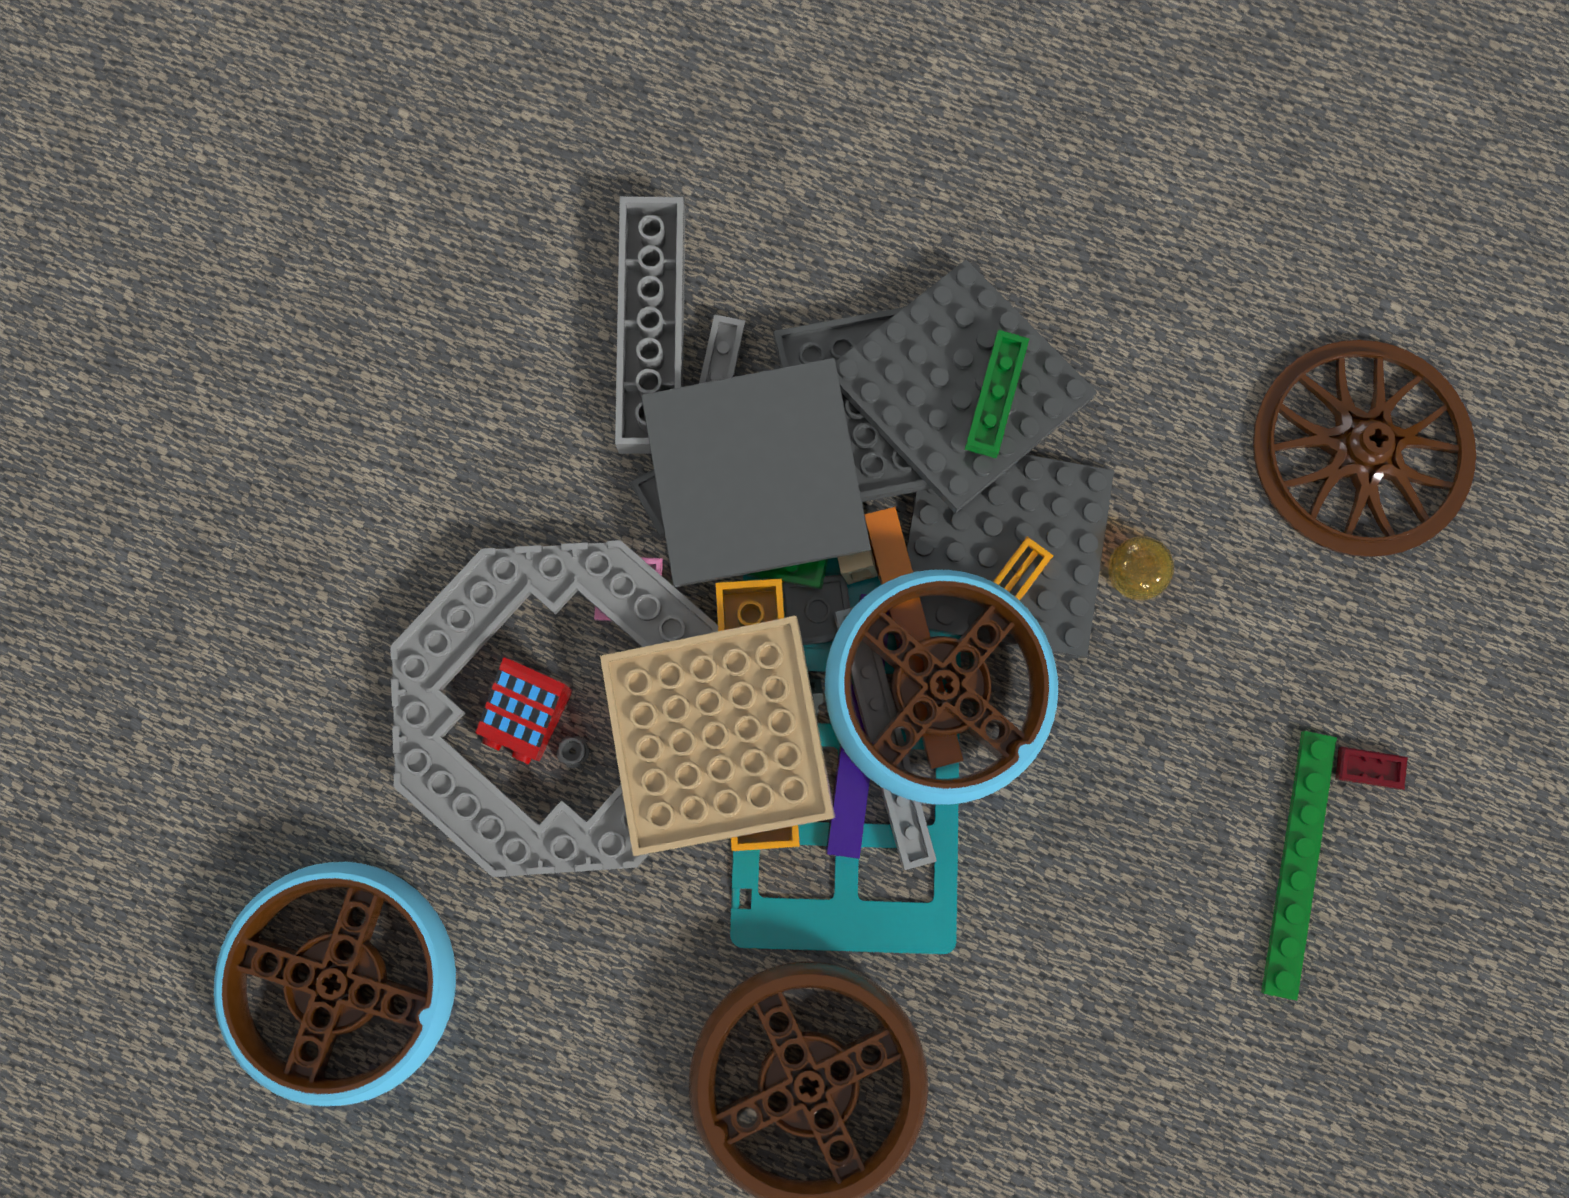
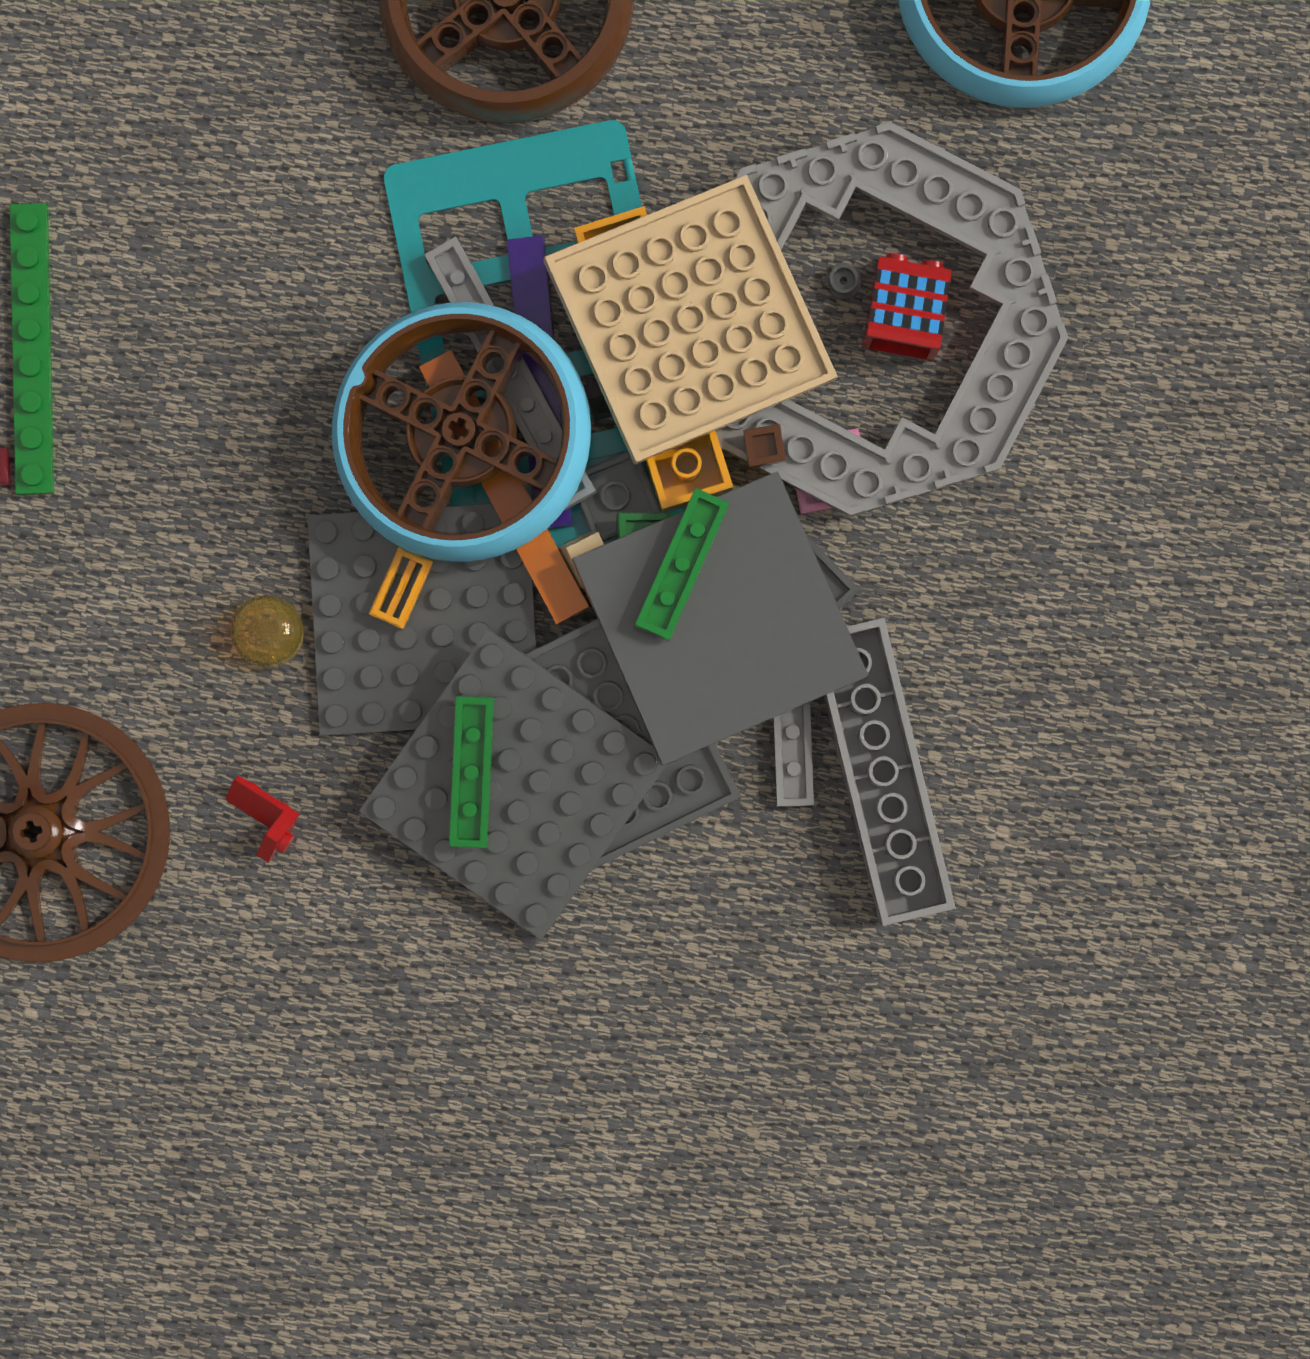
camera: 170 degrees right, 5 degrees up
(679, 612) = (764, 446): none -> reddish brown plate
(777, 518) = (681, 564): none -> green plate
(1165, 415) = (268, 811): none -> red bracket

